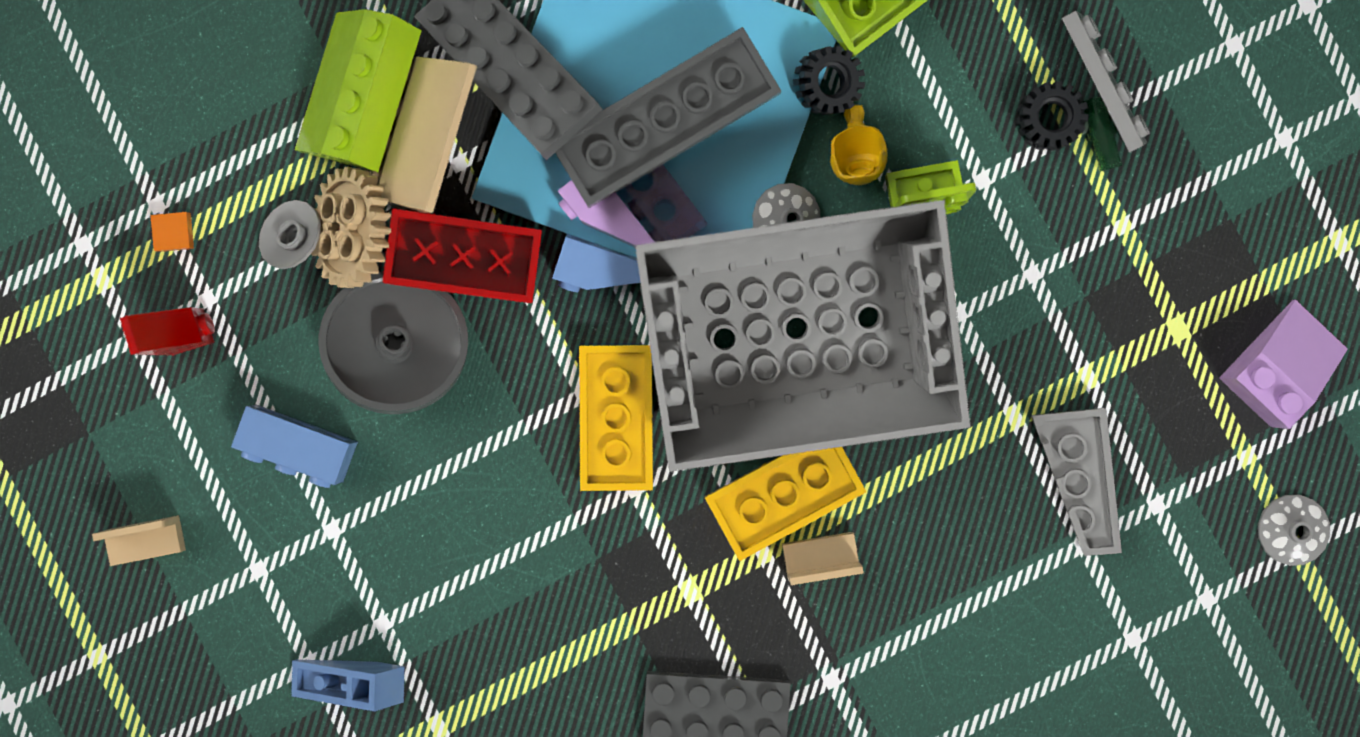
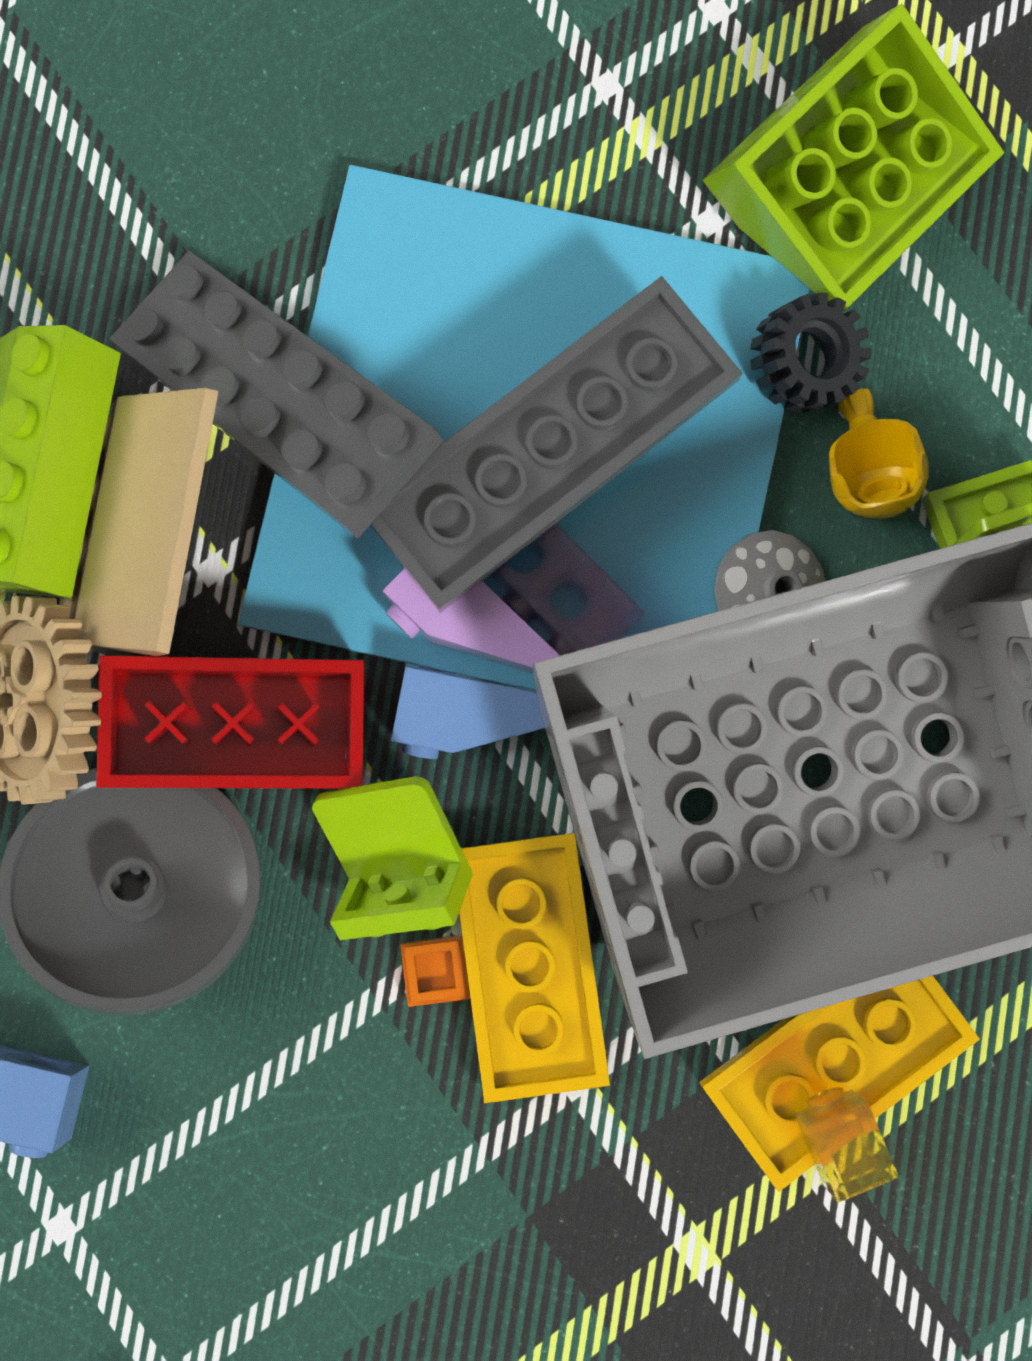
camera: 10 degrees left, 5 degrees down
(547, 345) = (397, 856): none -> lime bracket
(561, 413) = (435, 970): none -> orange tile
(778, 536) = (845, 1143): none -> clear yellow brick
(821, 558) = (935, 1169): tan panel -> none

